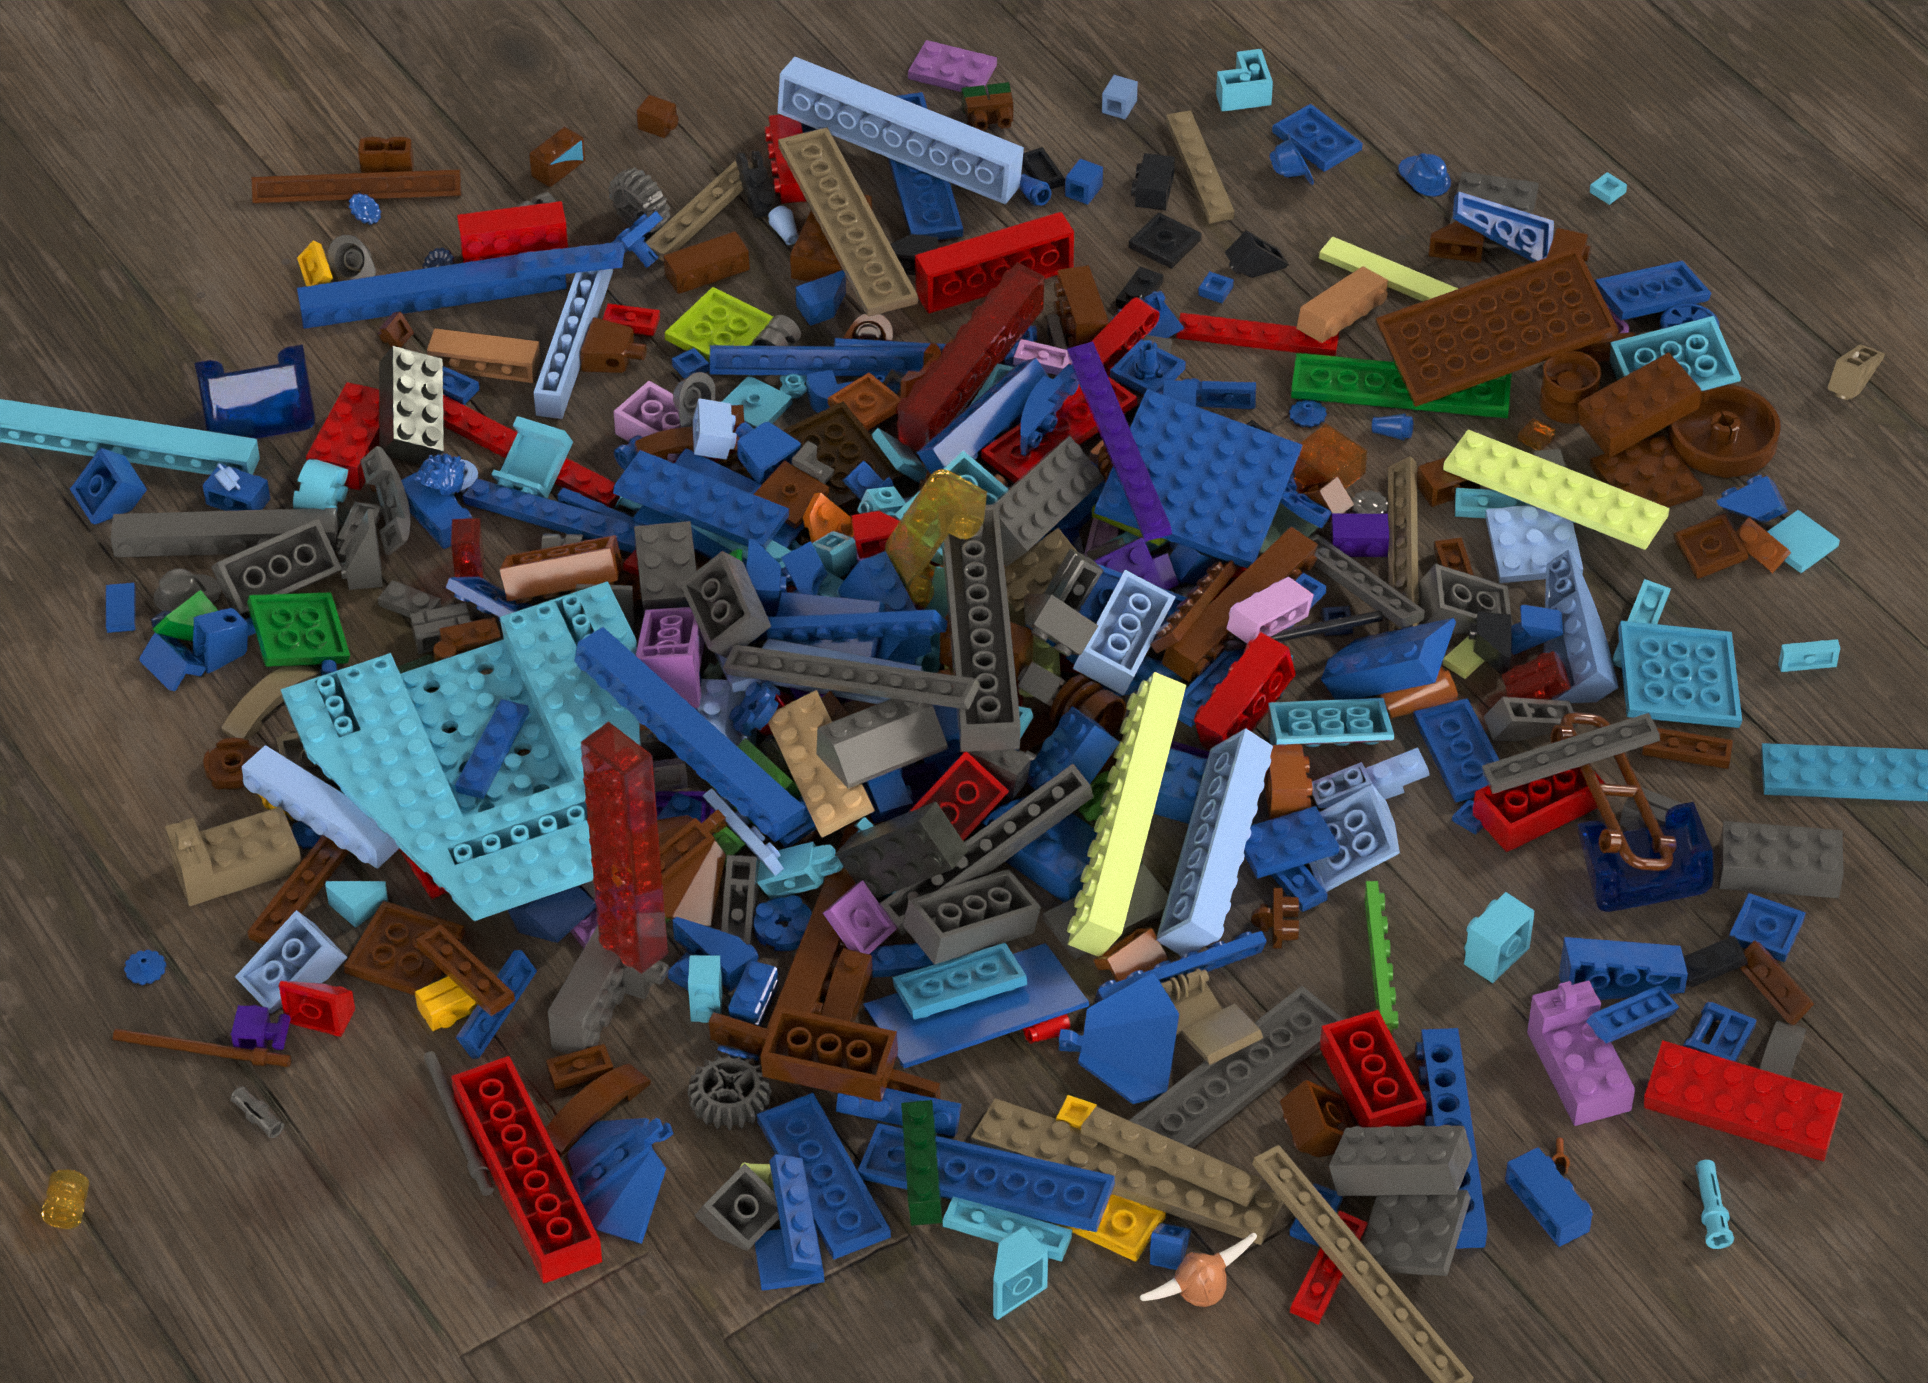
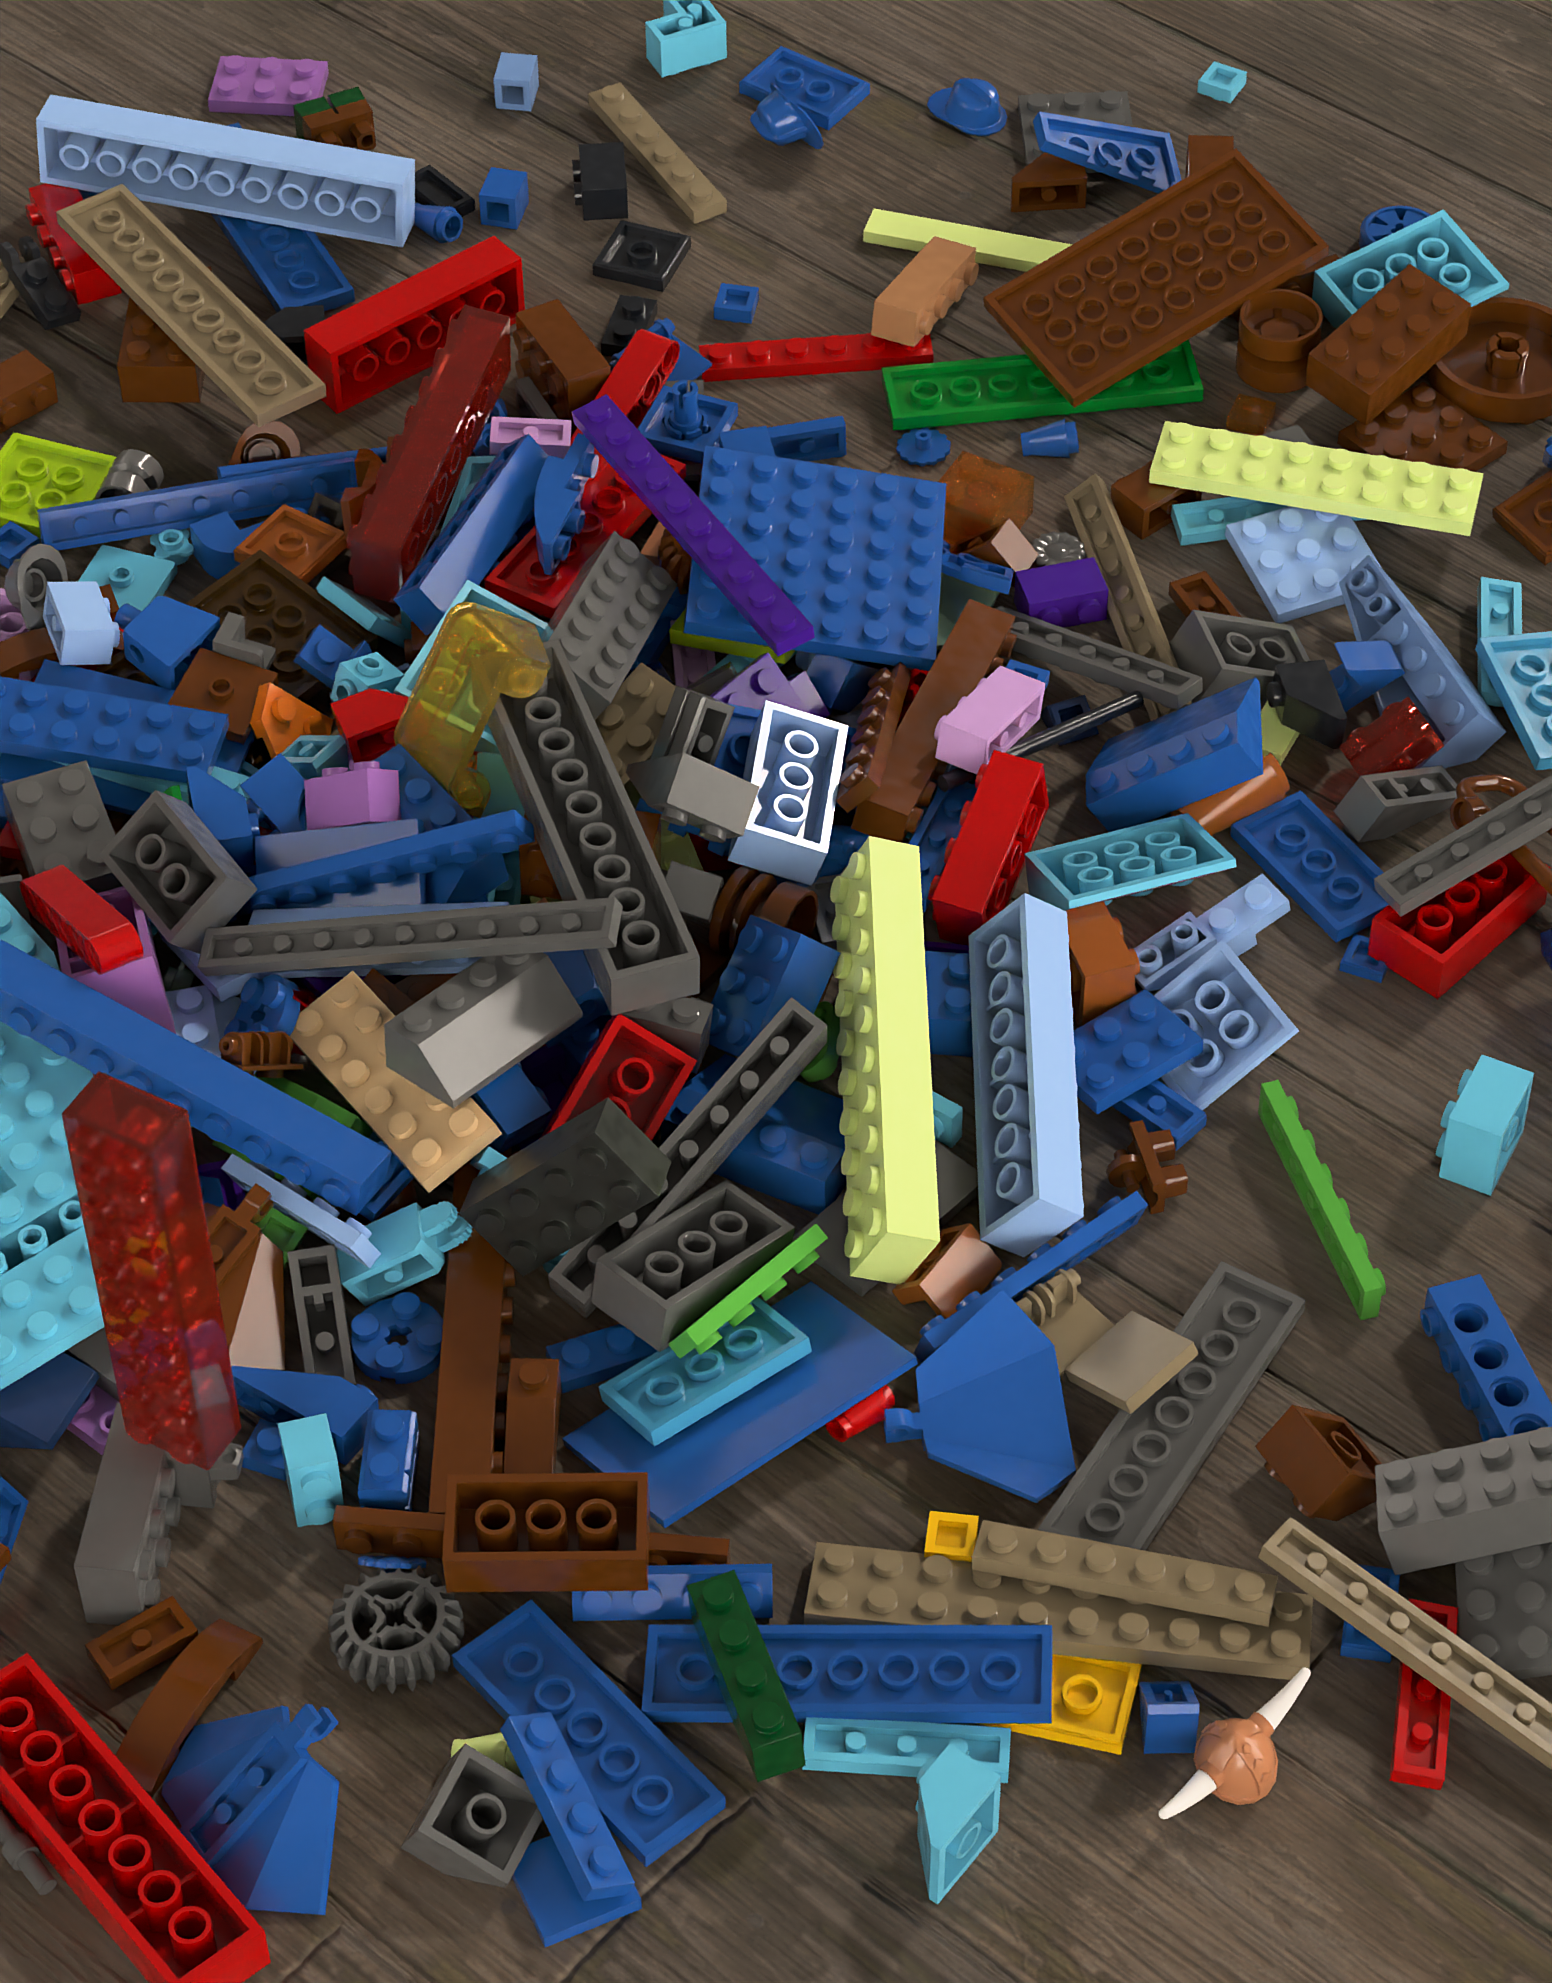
camera: 15 degrees left, 0 degrees up
(657, 623) = (81, 919): none -> red beam
(743, 728) = (259, 1051): none -> reddish brown hinge
(783, 223) = (91, 329): light blue cone -> none
(821, 297) = (176, 418): blue slope -> none
(846, 579) = (352, 796): none -> medium lavender brick
(860, 919) = (522, 1307): medium lavender plate -> none
(989, 945) = (737, 1305): none -> bright green plate
(1157, 859) = (947, 1120): none -> medium azure plate
(1254, 256) = (776, 252): black slope -> none
(1372, 1072) = (1379, 1372): red brick -> none
(1652, 290) = (1344, 194): blue plate -> none

